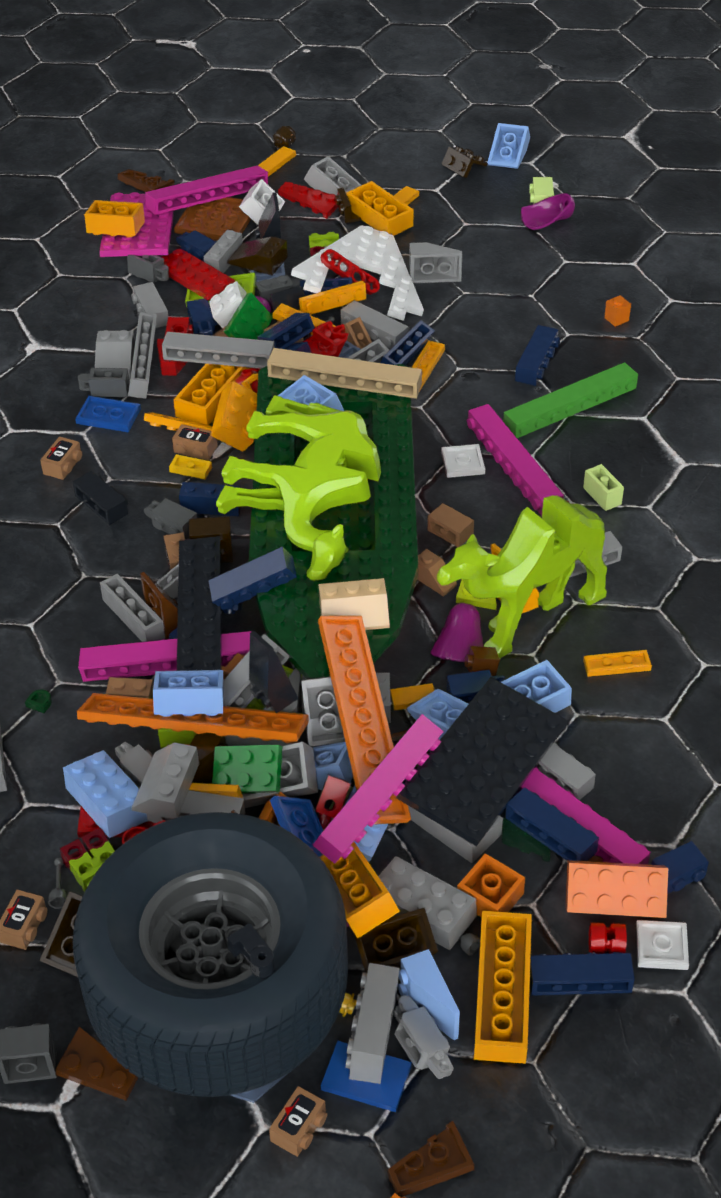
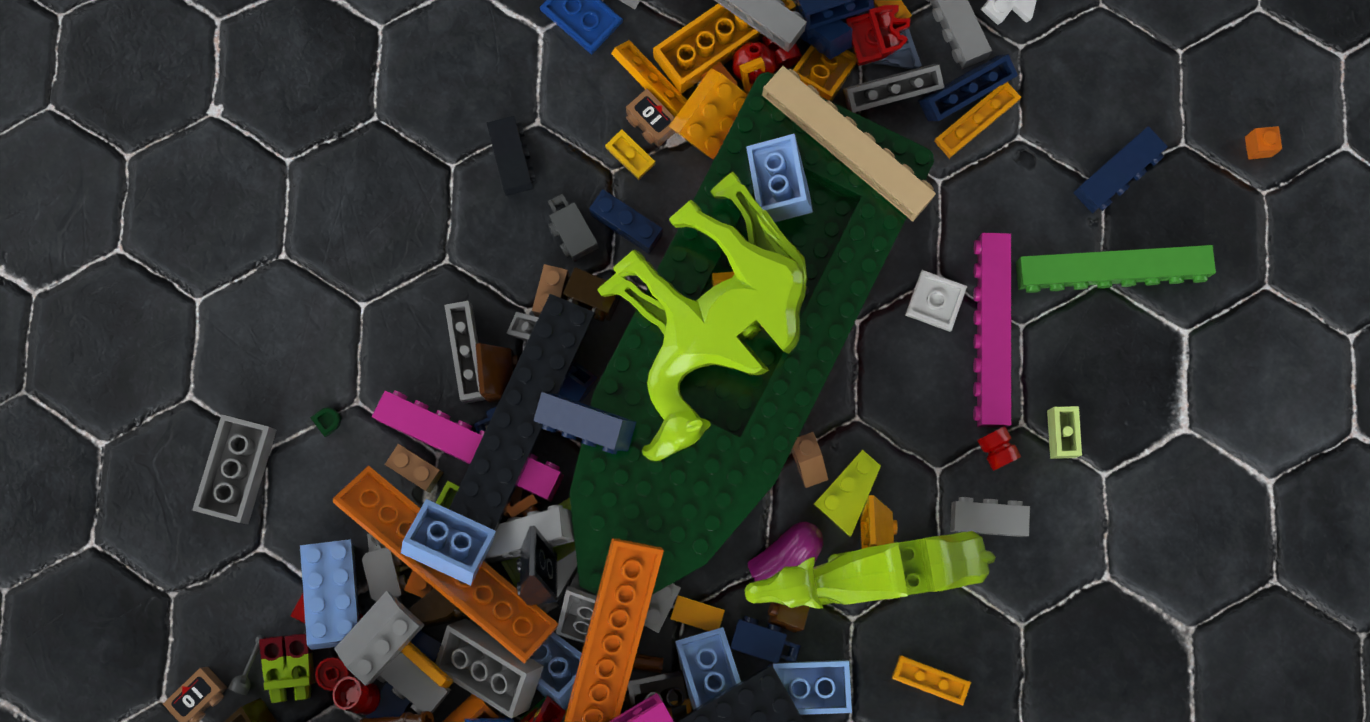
camera: 25 degrees right, 35 degrees up
(61, 458) = (495, 69): medium nougat brick -> none
(250, 766) = (466, 659): green plate -> none
(356, 598) = (666, 524): tan slope -> none
(357, 333) = (924, 29): medium nougat slope -> none
(450, 525) = (866, 396): medium nougat brick -> none

